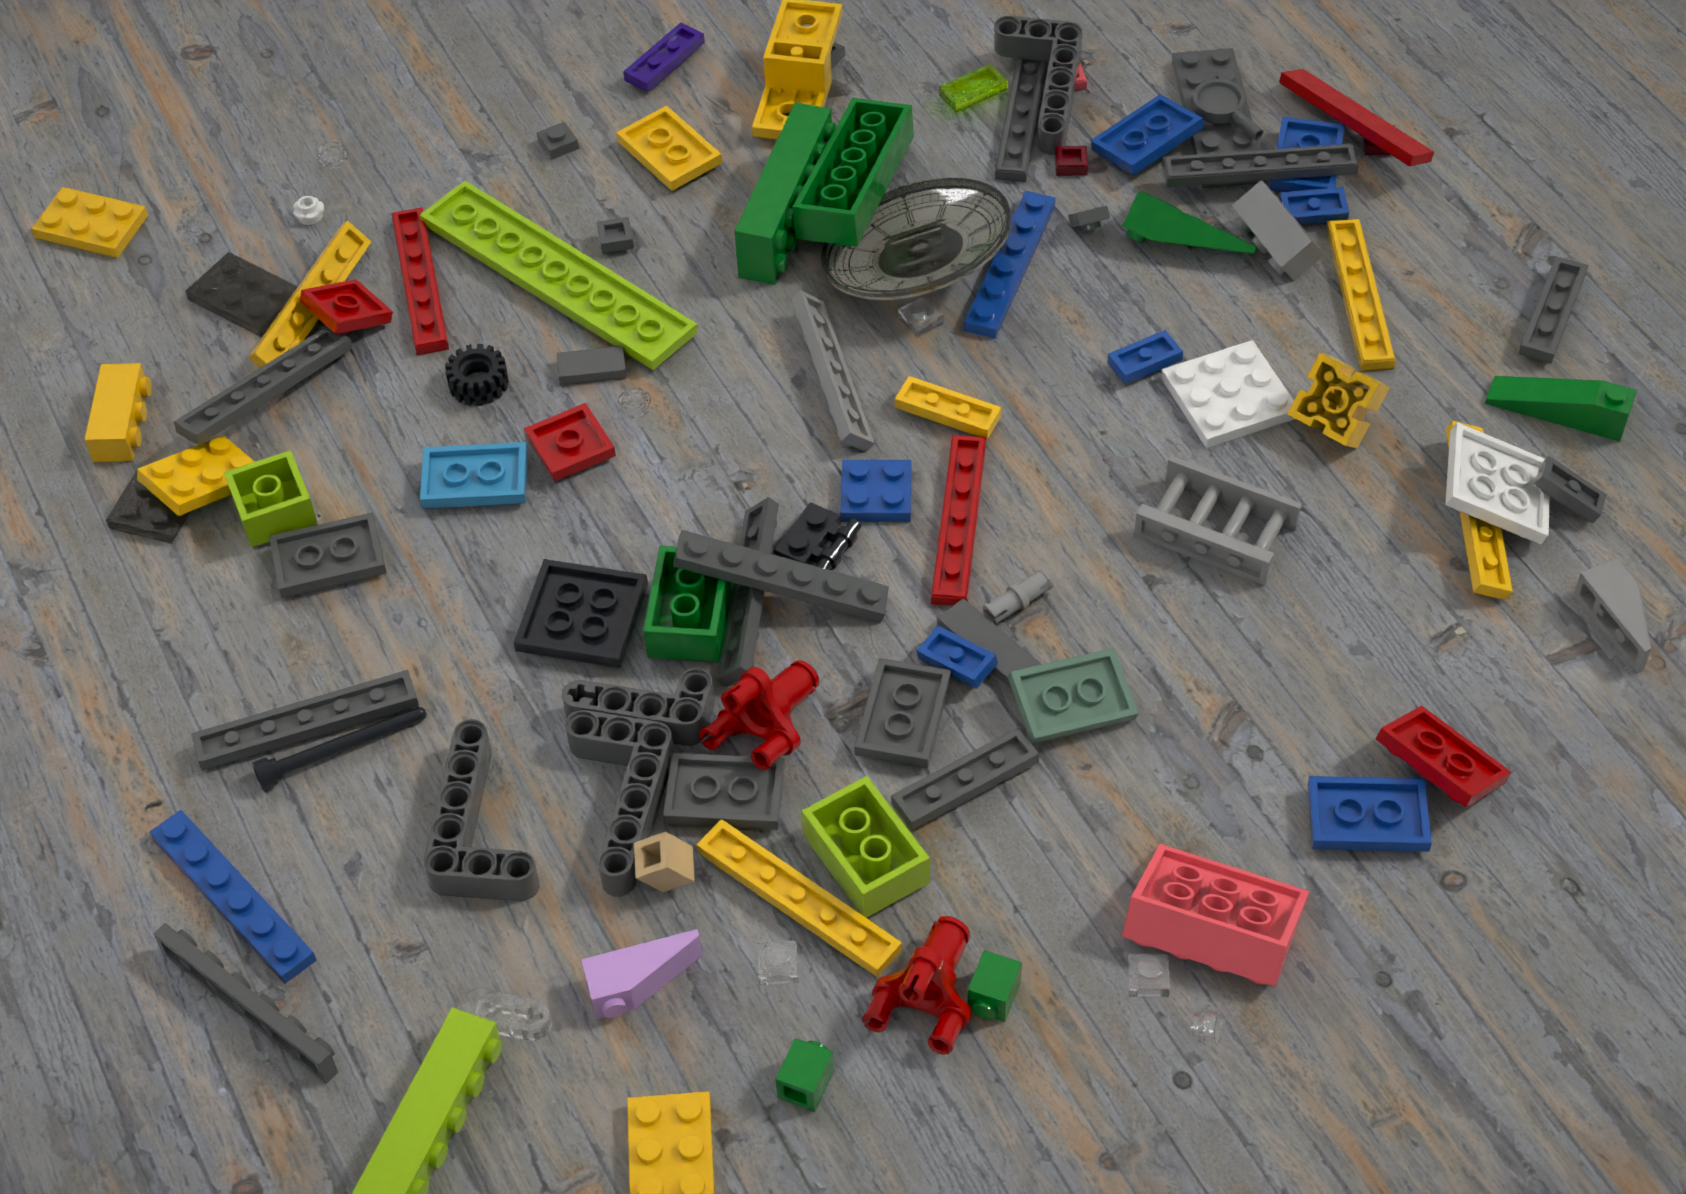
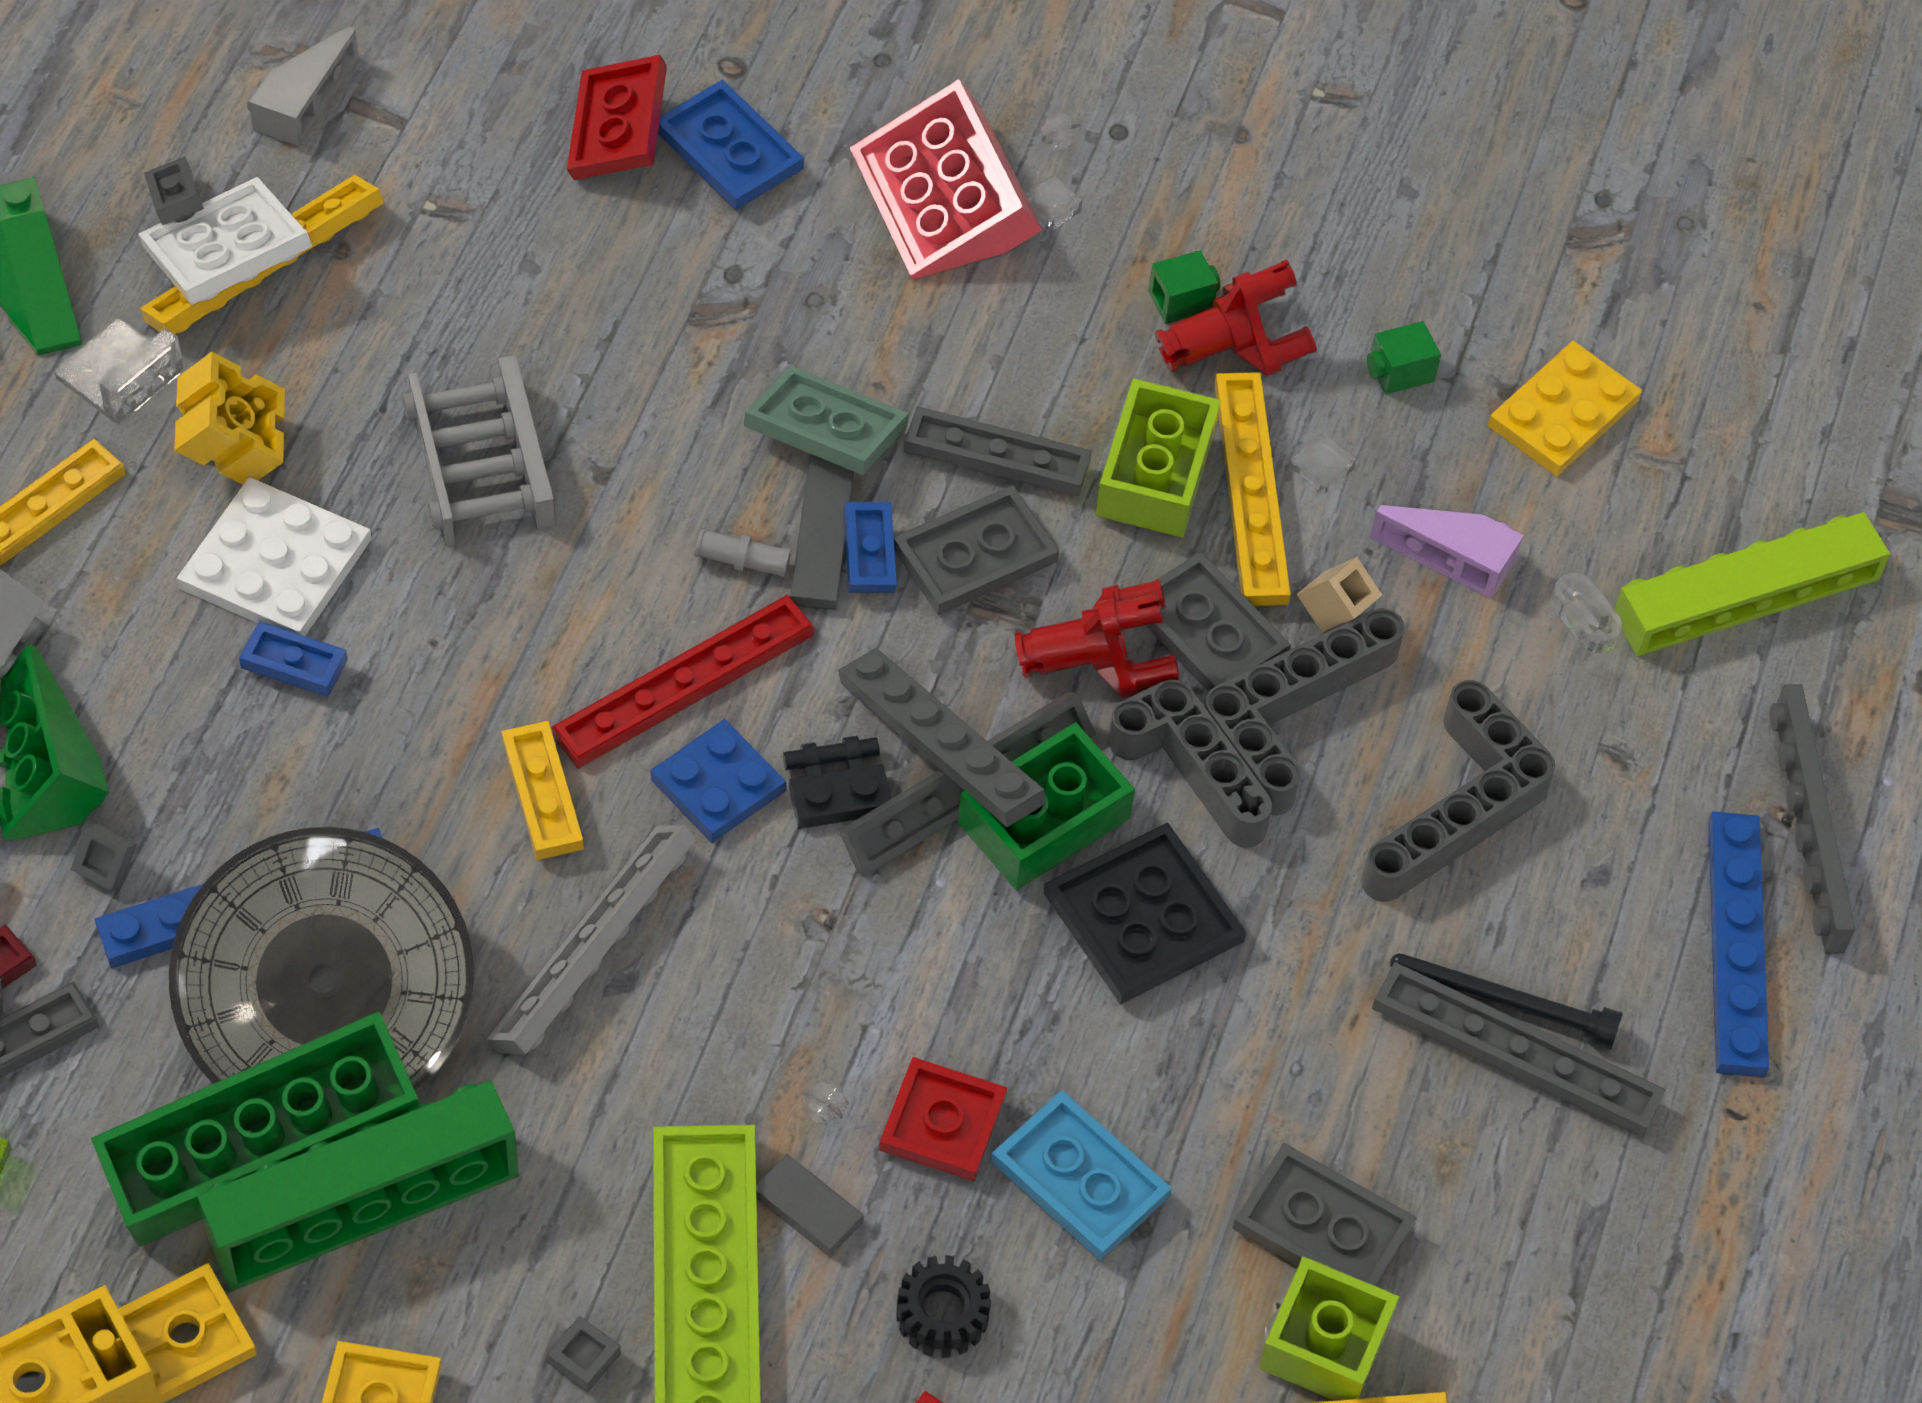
camera: 140 degrees left, 5 degrees up
(1438, 395) = (122, 369): none -> clear bracket

